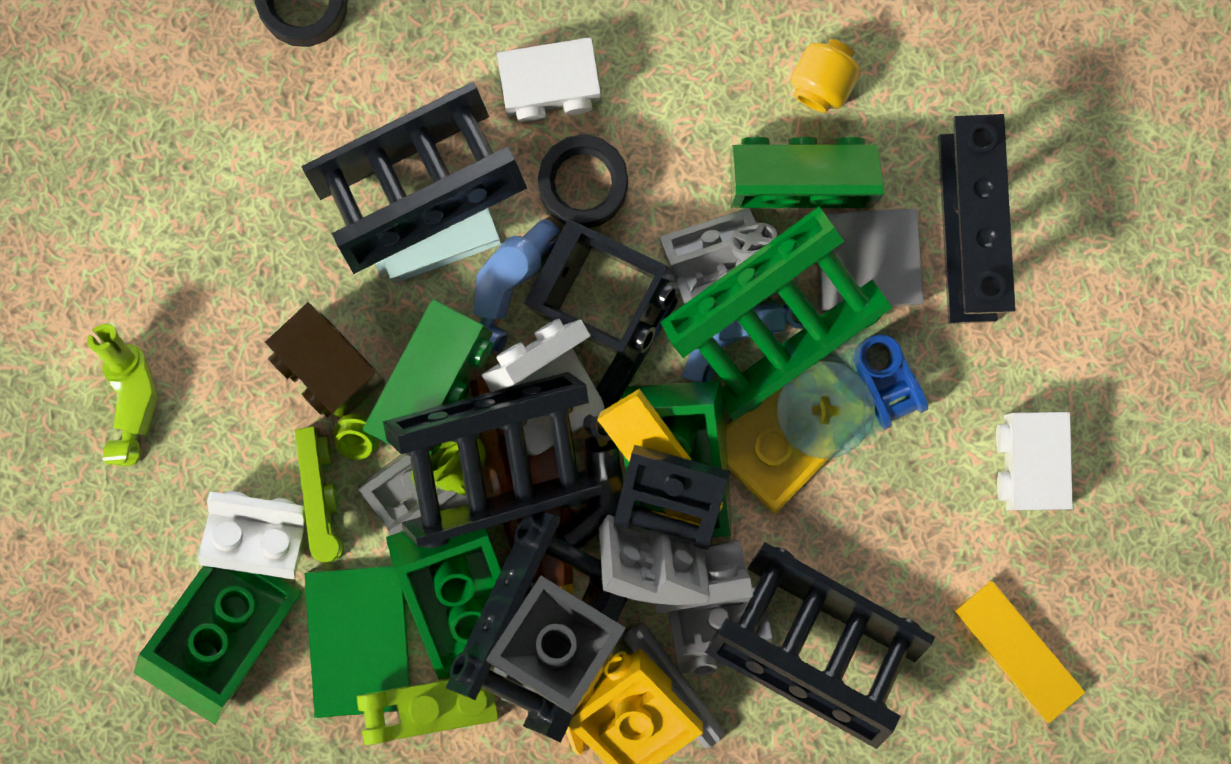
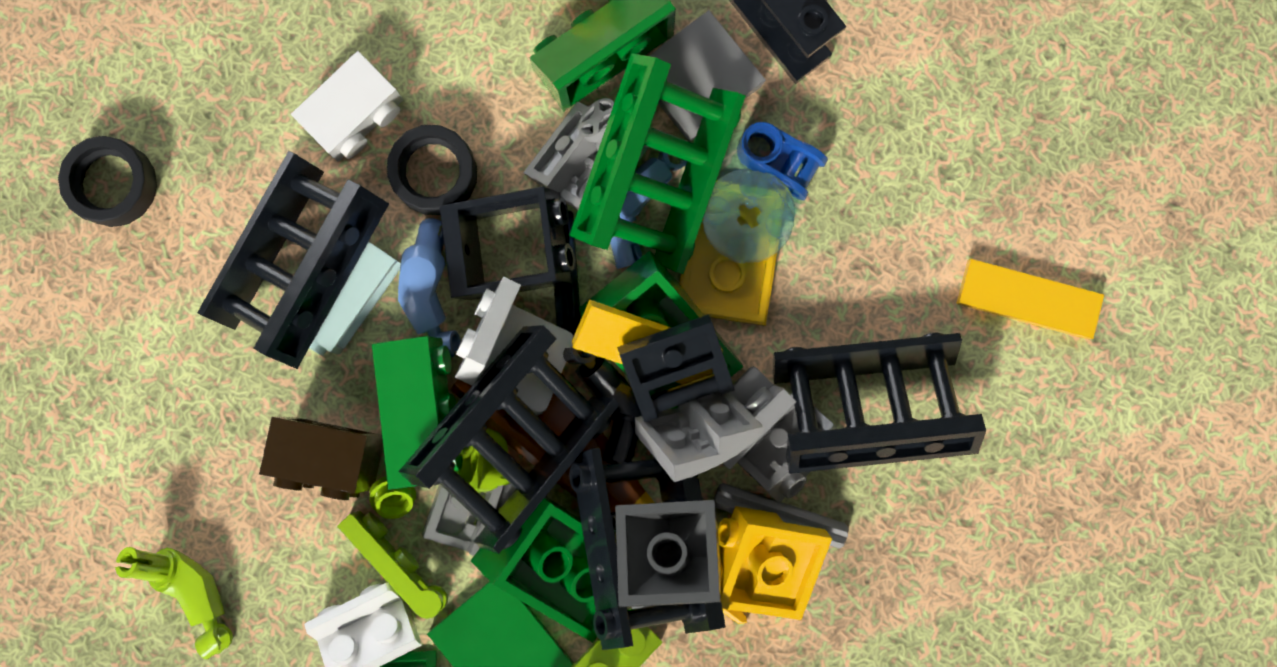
camera: 30 degrees left, 0 degrees up
(1035, 461) = (939, 141): white brick -> none

